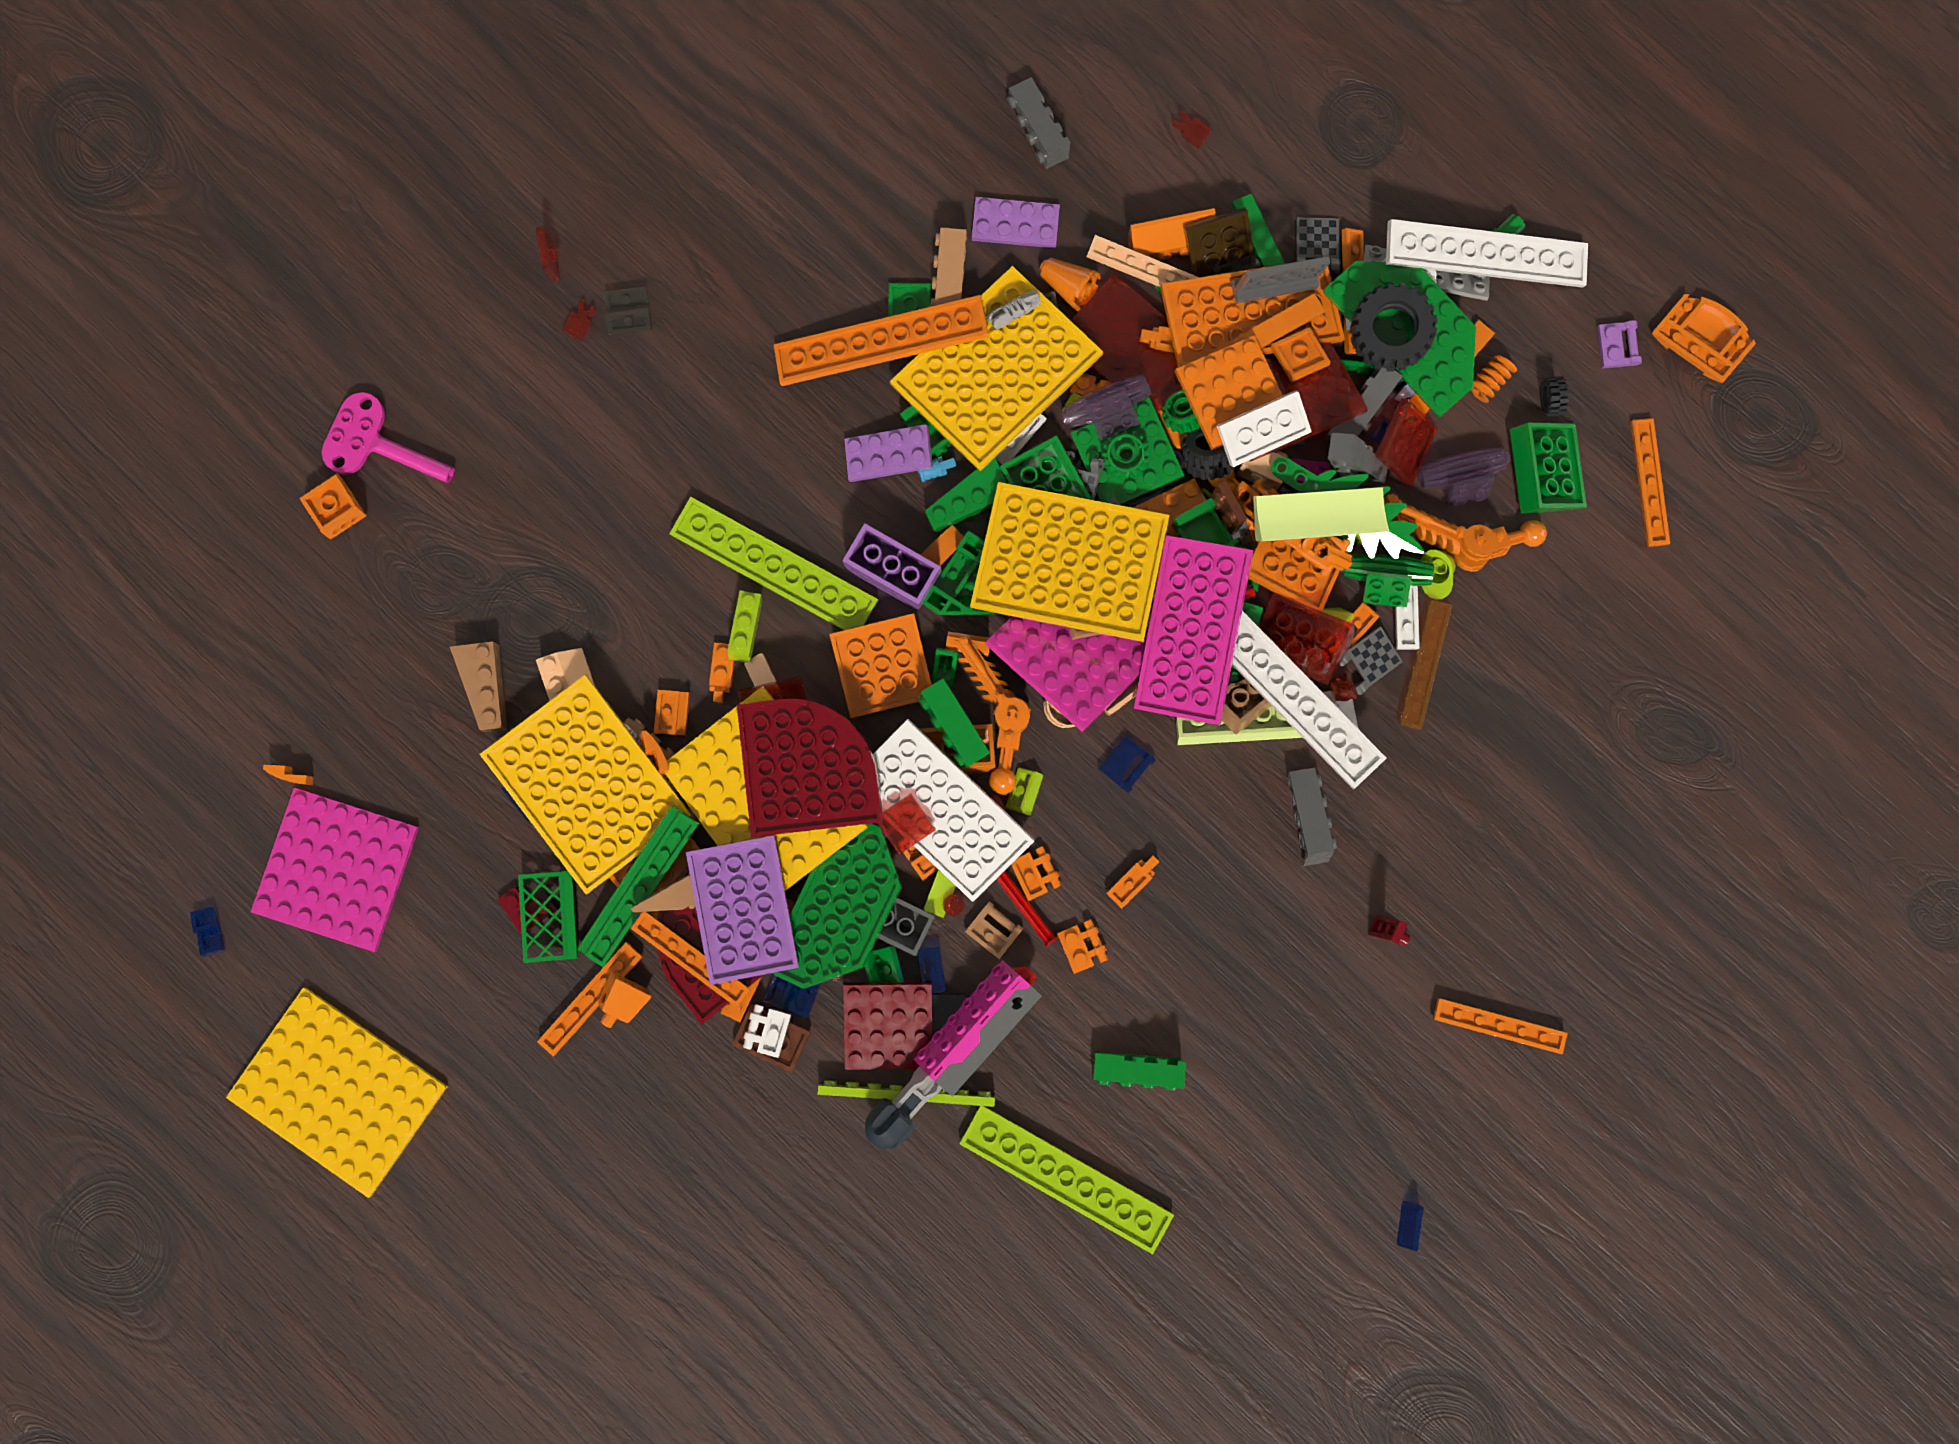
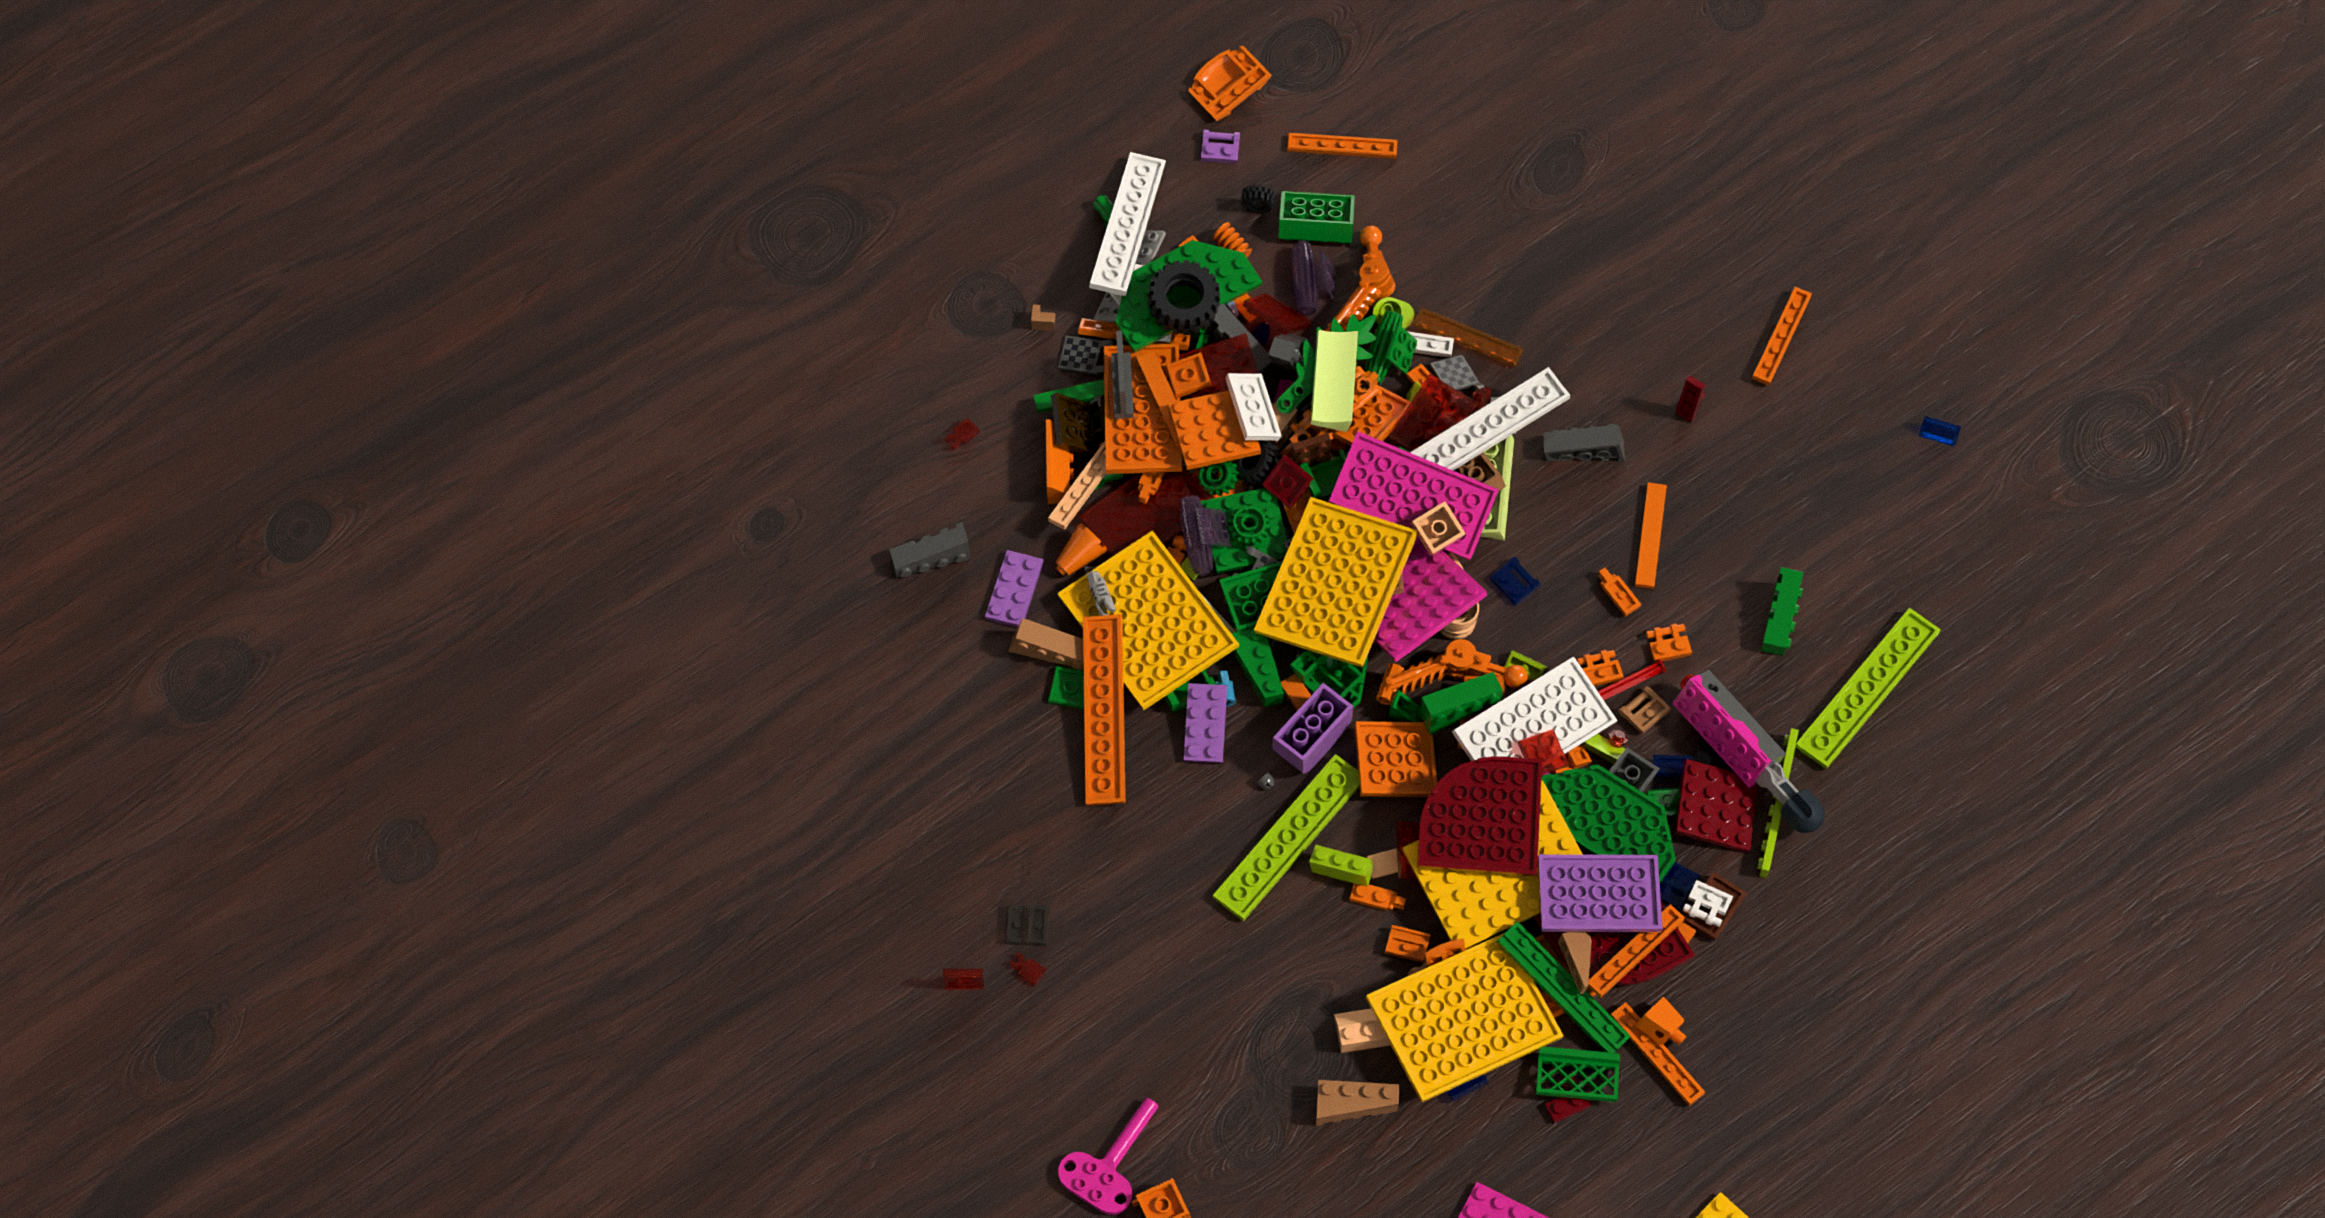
camera: 80 degrees left, 20 degrees down
(834, 532) = (1265, 781): none -> dark grey hinge
(1153, 663) = (1438, 528): none -> light nougat brick
(1186, 487) = (1287, 481): none -> dark red tile
(1213, 908) = (1650, 535): none -> orange tile
(1352, 187) = (1042, 320): none -> medium nougat panel

